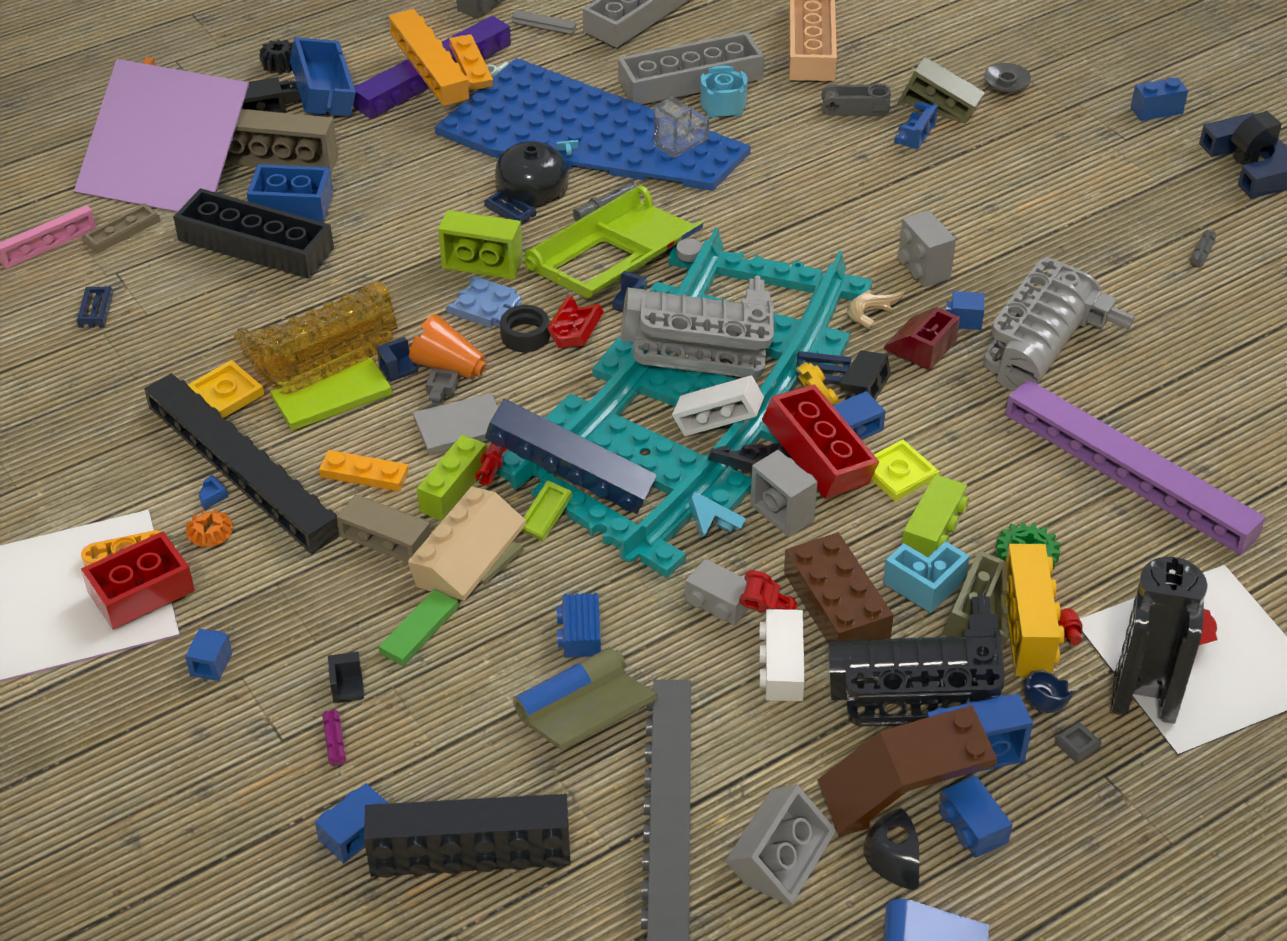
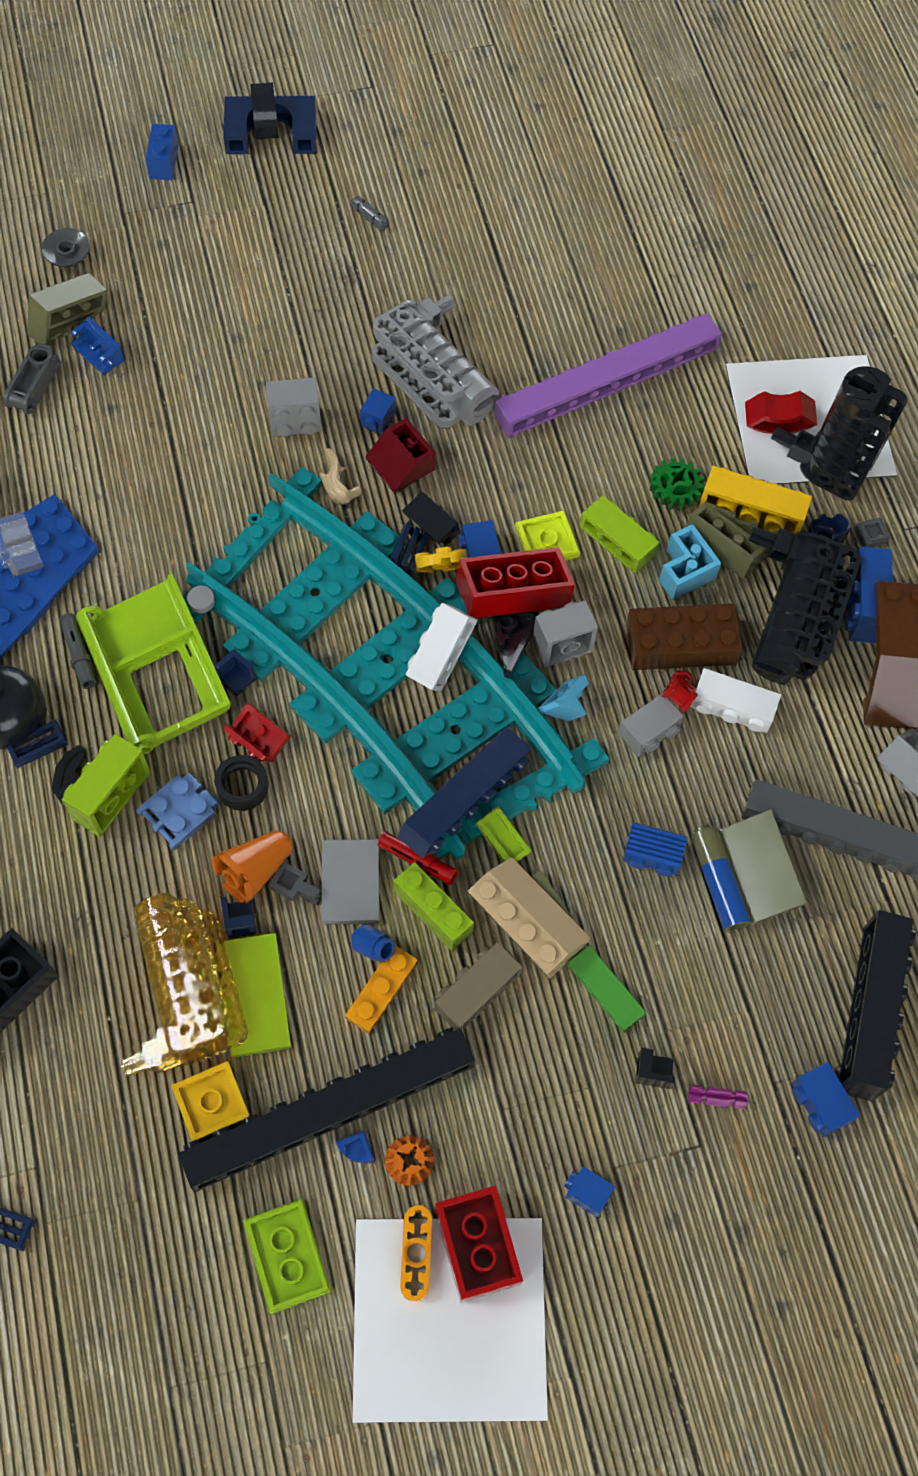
camera: 75 degrees left, 20 degrees up
(106, 474) = (286, 1256): none -> lime tile
(401, 445) = (372, 943): none -> blue brick
(700, 329) = (343, 621): light grey piece -> none

